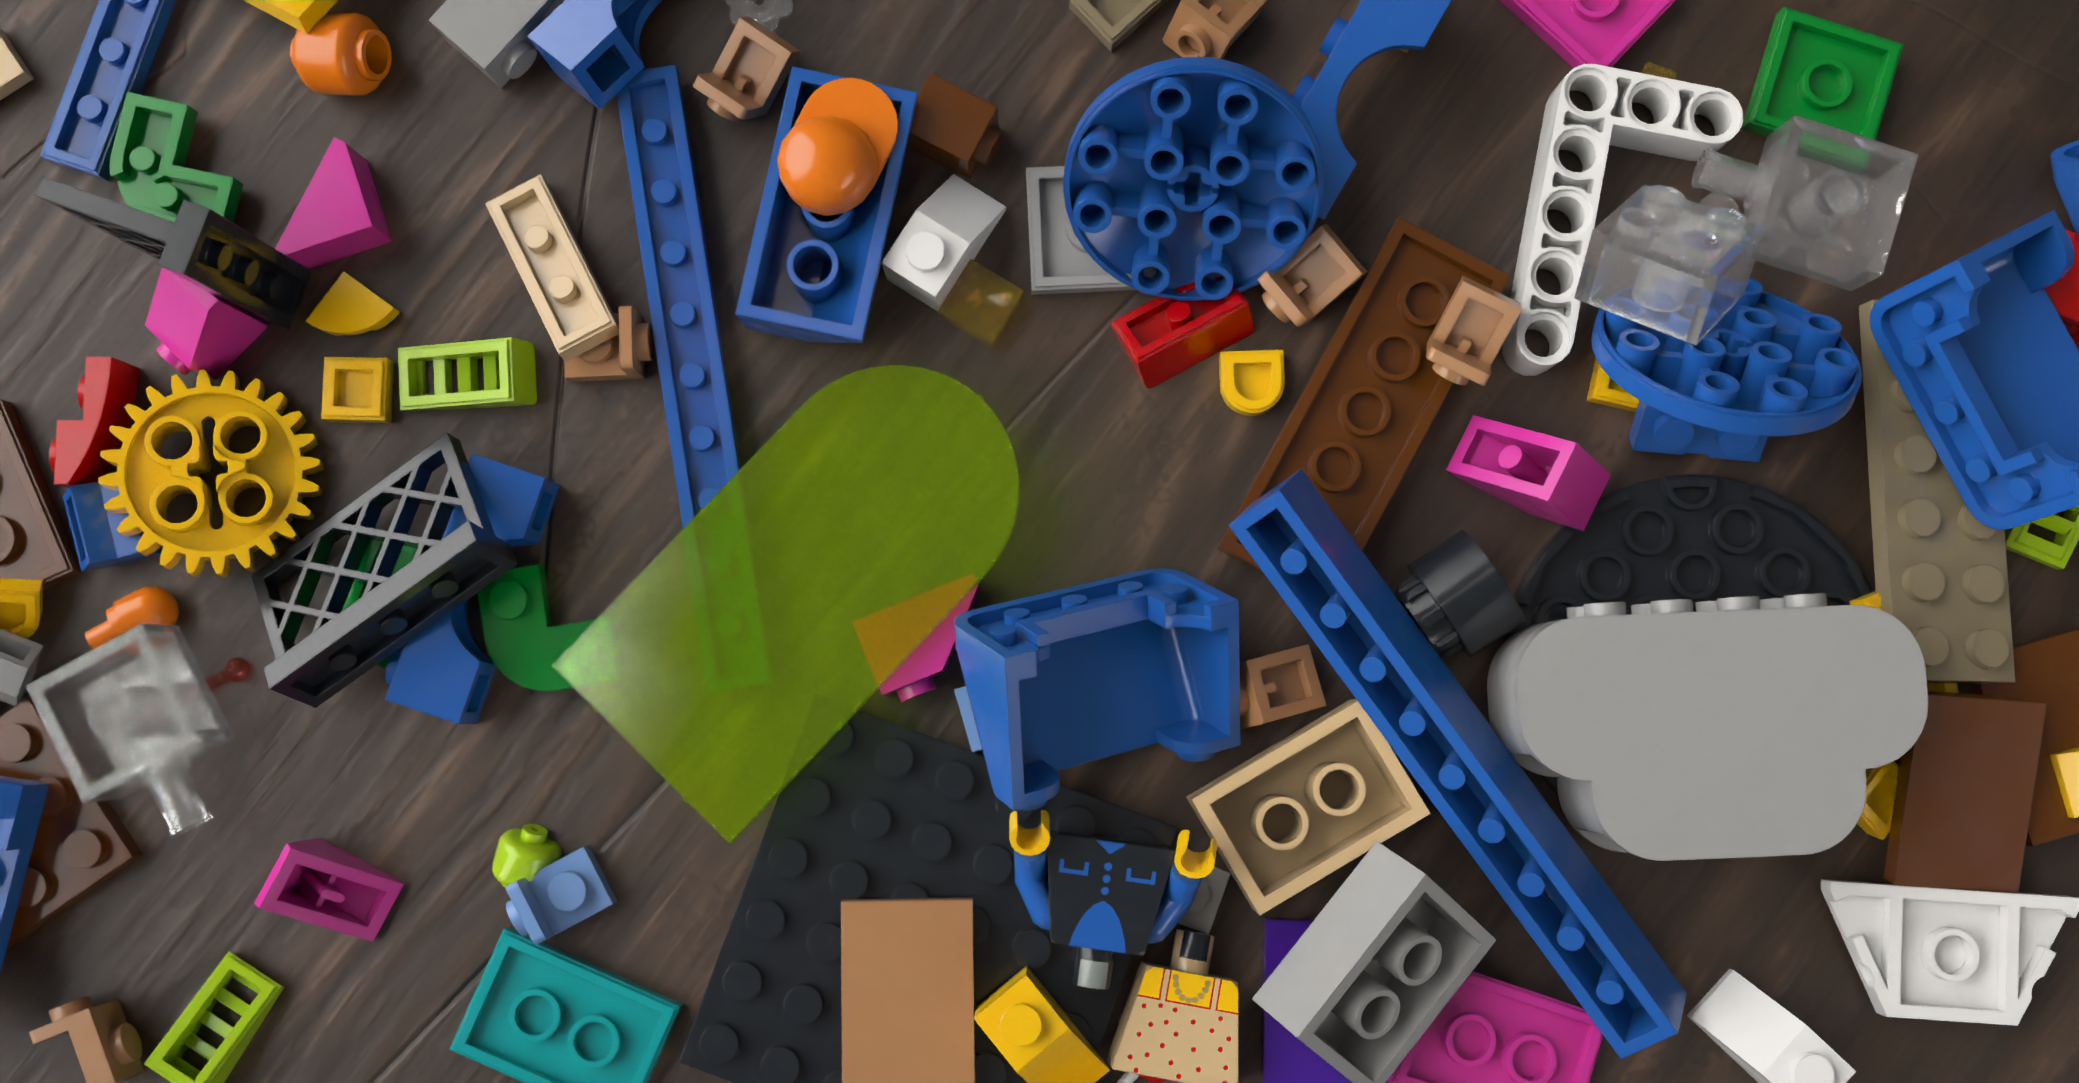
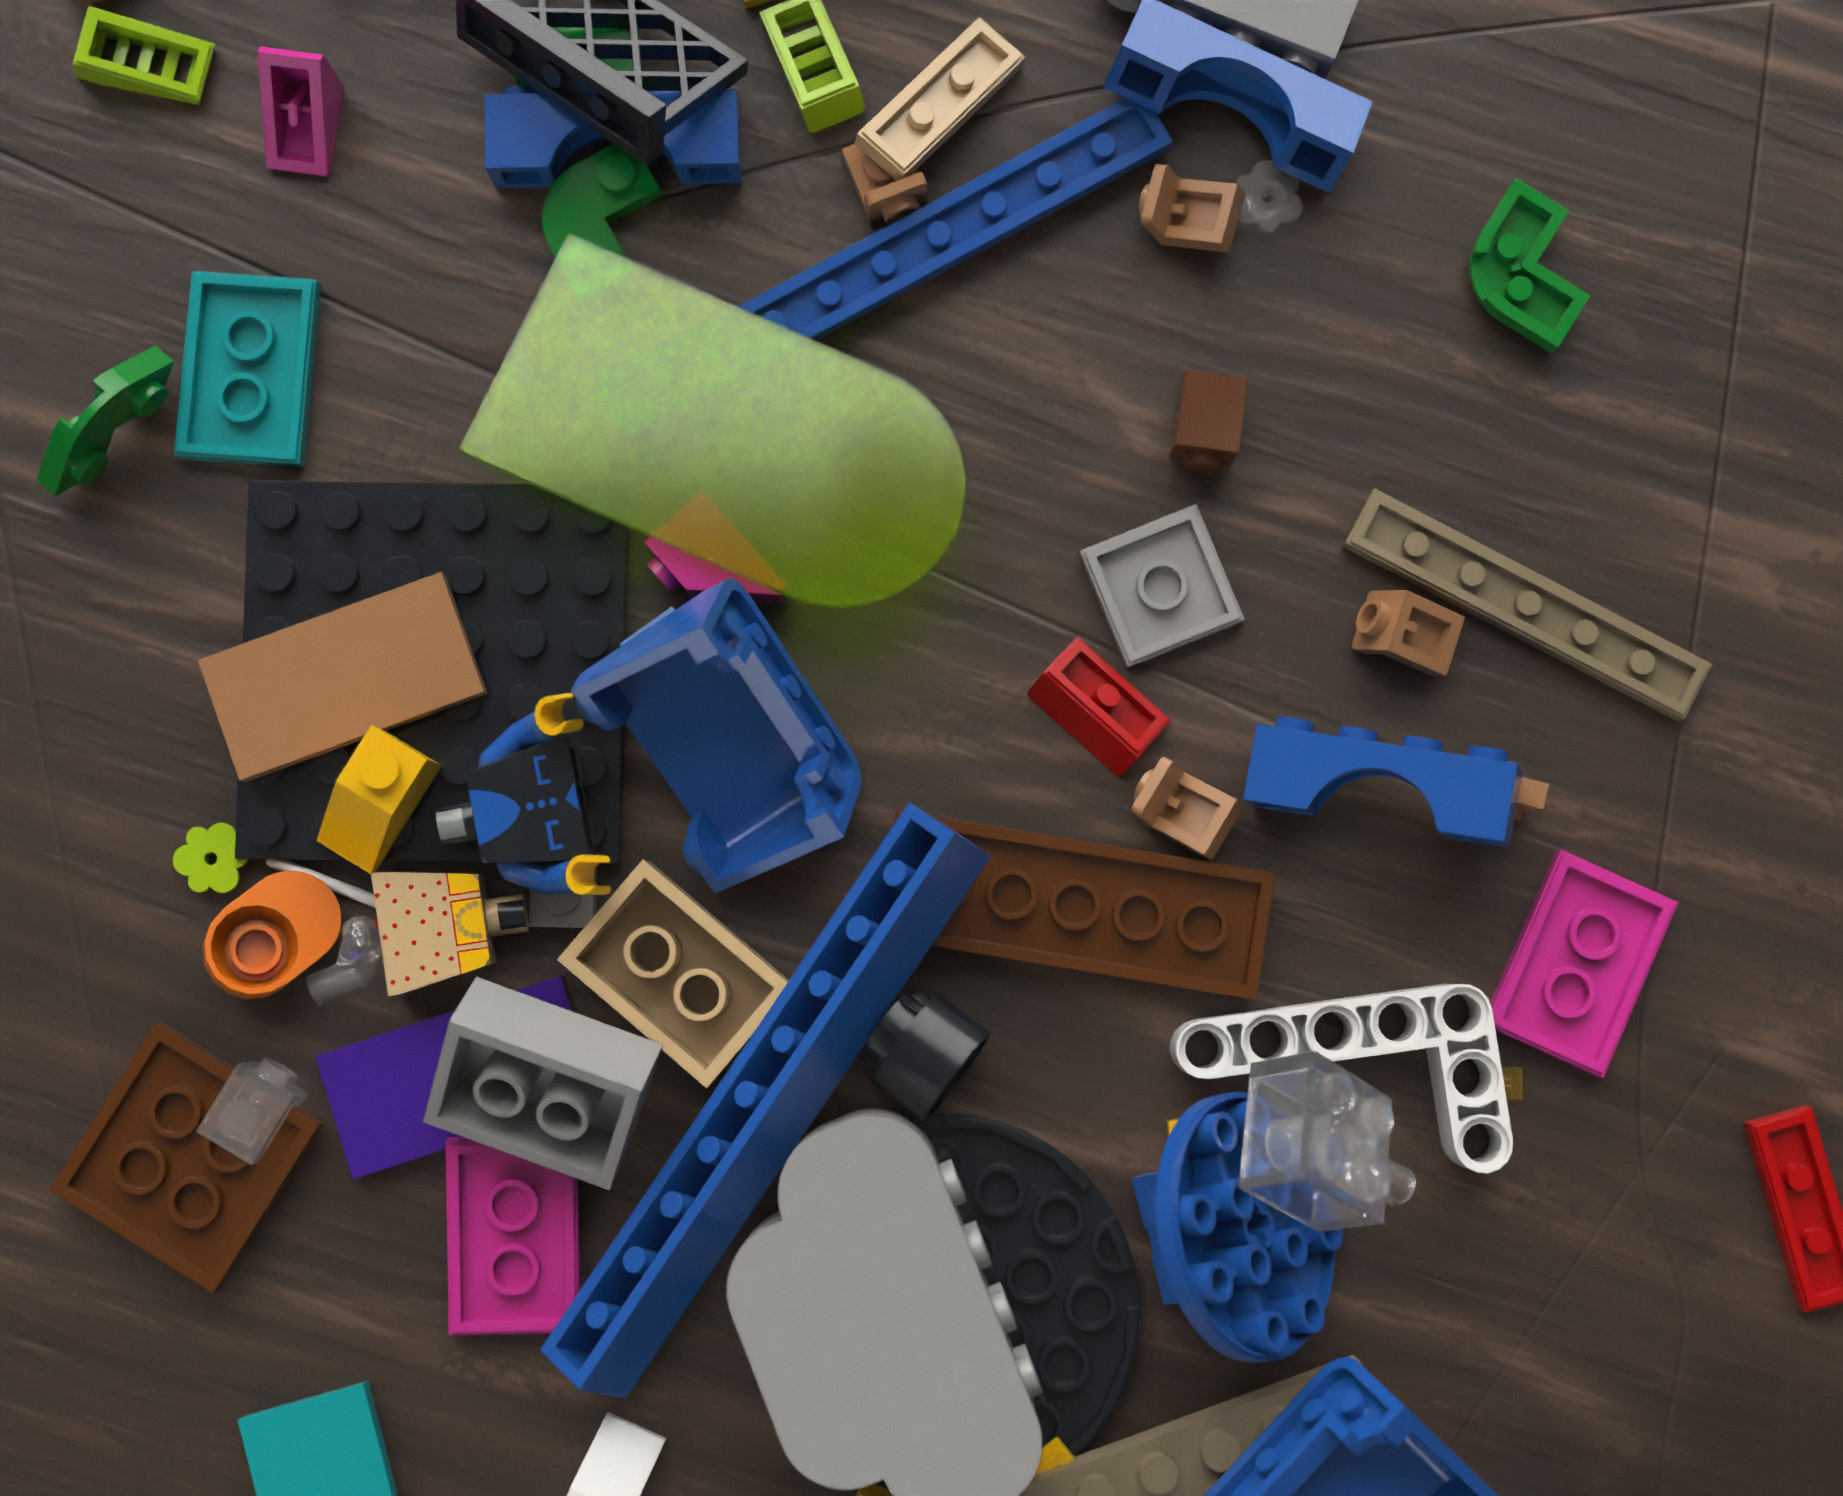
camera: 70 degrees right, 0 degrees up
(524, 854) = (387, 278): lime piece -> none
(559, 896) = (362, 318): medium blue bracket -> none
(812, 271) = (1083, 326): blue slope -> none
(838, 146) = (1141, 315): orange cap -> none
(941, 240) = (1097, 450): white slope -> none
(981, 303) = (1051, 508): clear yellow tile -> none
(1193, 176) = (1232, 657): blue bracket -> none
(1251, 380) = (1069, 789): yellow tile -> none
(1278, 686) = (781, 910): medium nougat bracket -> none
(1471, 332) = (1181, 976): medium nougat bracket -> none
(1530, 471) = (1073, 1083): dark pink slope -> none
(1821, 196) = (1437, 1272): clear brick -> none
(1822, 75) = (1559, 1247): green plate -> none

